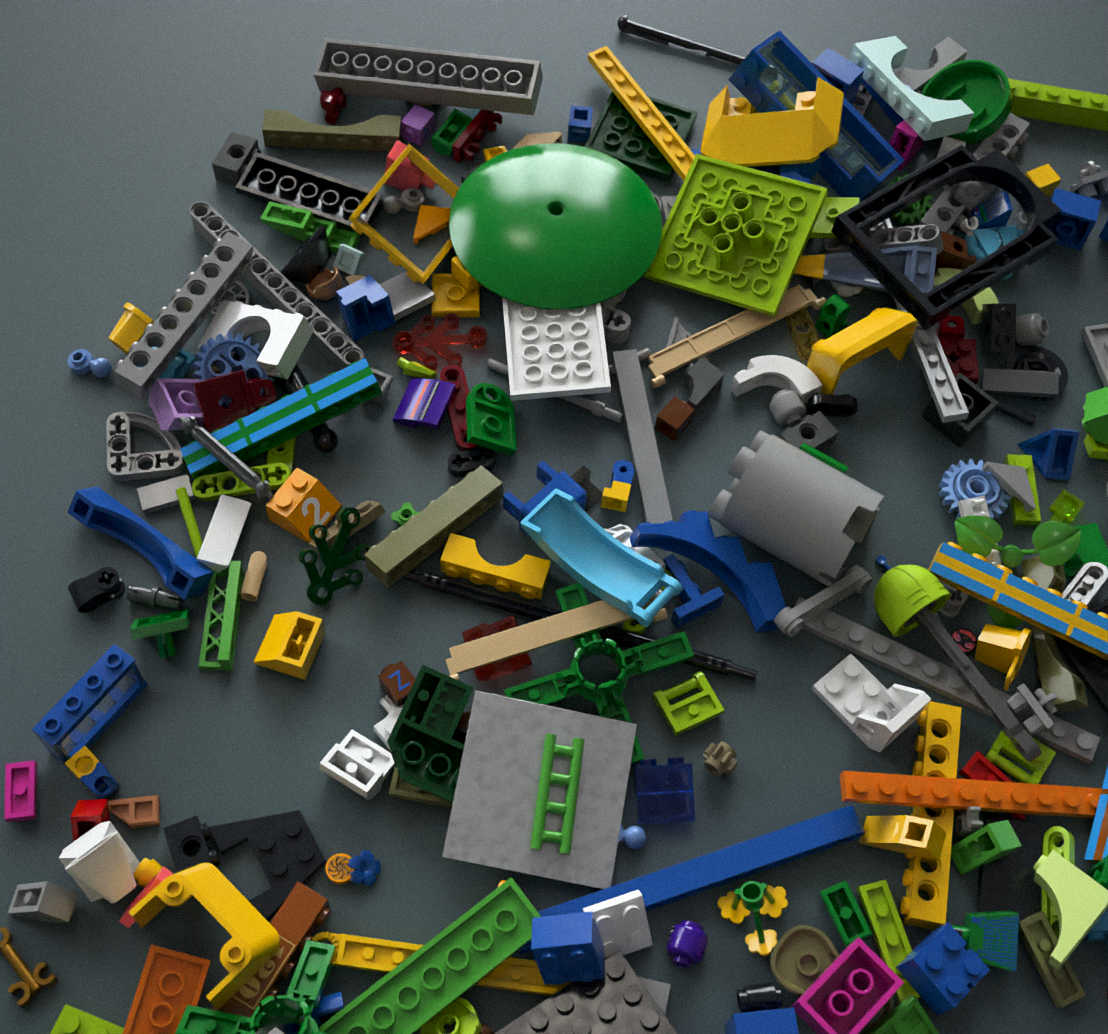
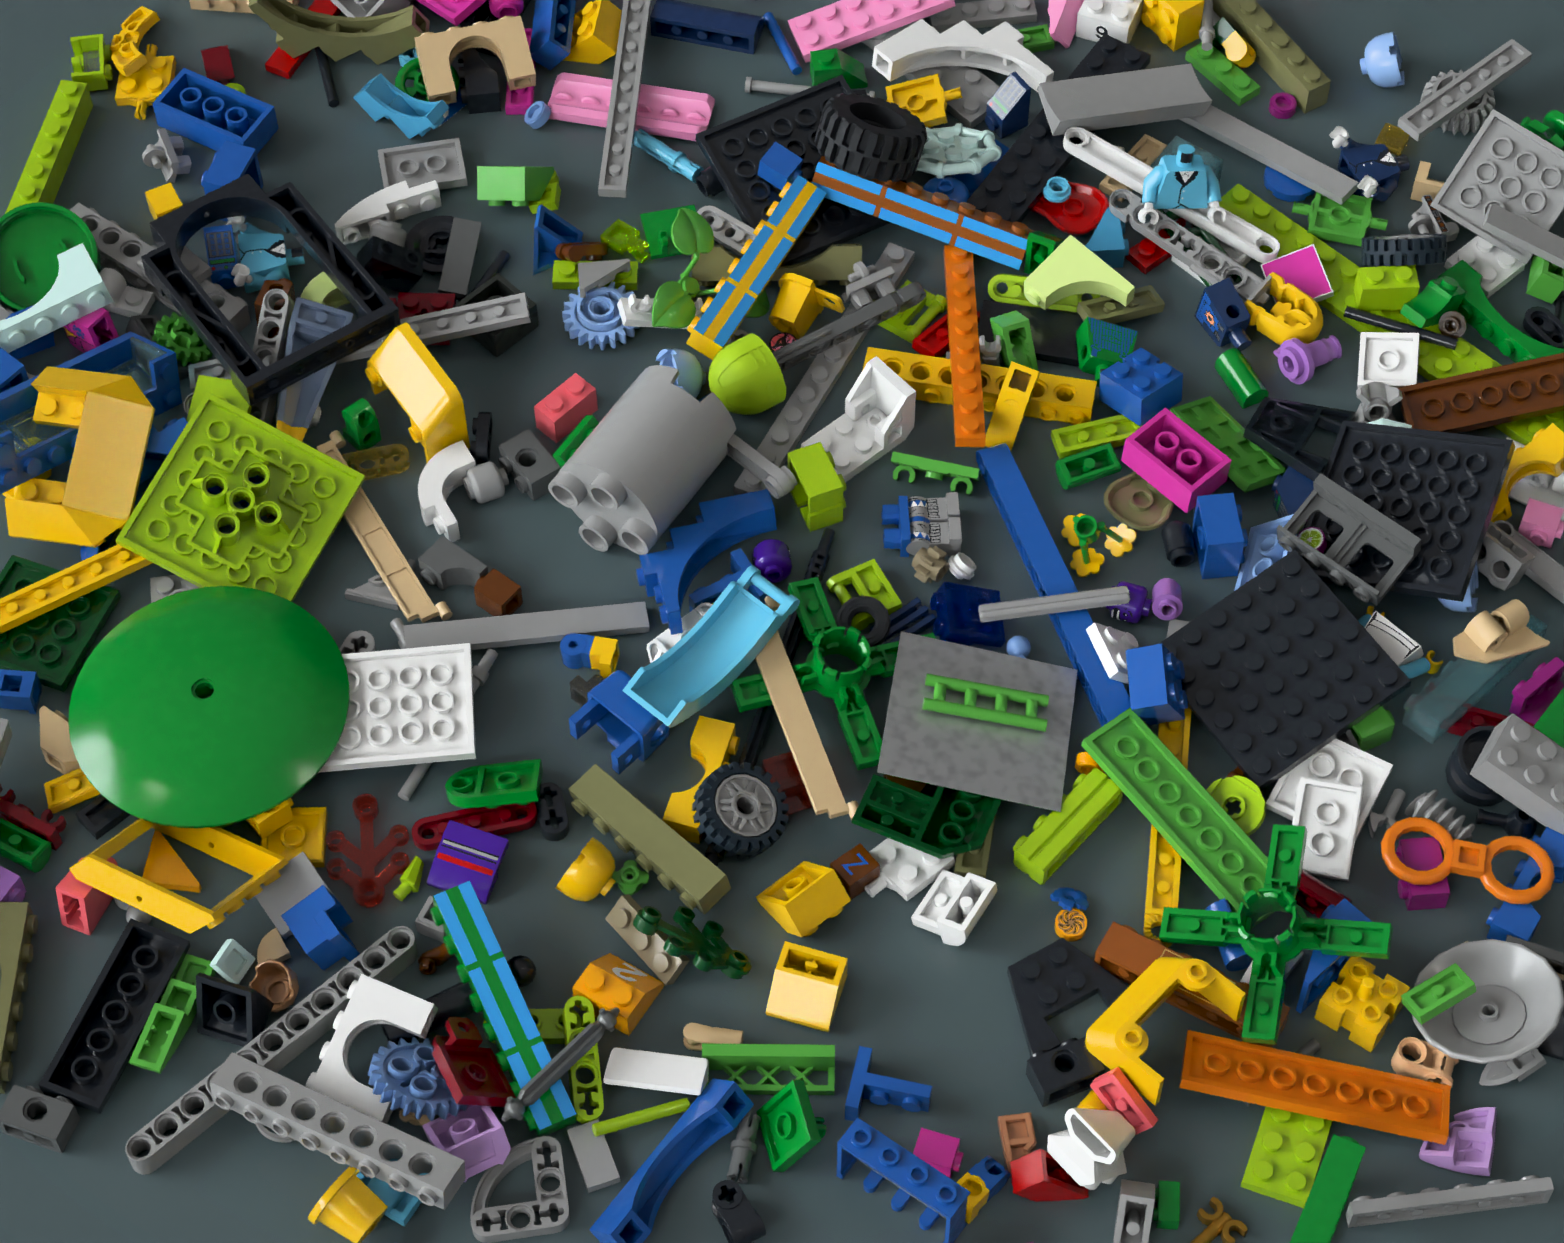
camera: 85 degrees left, 5 degrees down
(52, 935) = (1168, 1205): none -> green piece
(126, 741) = (939, 1151): none -> dark pink brick
(191, 698) = (882, 1089): none -> blue bracket
(375, 643) = (804, 898): none -> yellow slope
(406, 483) = (589, 873): none -> yellow cylinder
(435, 596) = (723, 822): none -> wheel
(442, 875) = (1062, 832): none -> lime brick
(643, 718) = (904, 616): none -> dark blue tile
(660, 708) = (872, 607): none -> black tyre
(671, 865) = (1054, 604): none -> light grey axle
(689, 980) = (1167, 599): none -> medium lavender brick
(718, 625) = (773, 560): none -> dark purple head
(727, 789) = (961, 566): none -> white plate
(765, 756) = (923, 524): none -> hips
(795, 657) = (817, 486): none -> lime piece
(830, 769) = (935, 470): none -> bright green plate
(869, 463) = (565, 407): none -> coral brick
(910, 550) = (691, 374): none -> cylinder
(1046, 479) = (576, 250): none -> reddish brown plate
(1067, 328) = (387, 204): none -> white slope

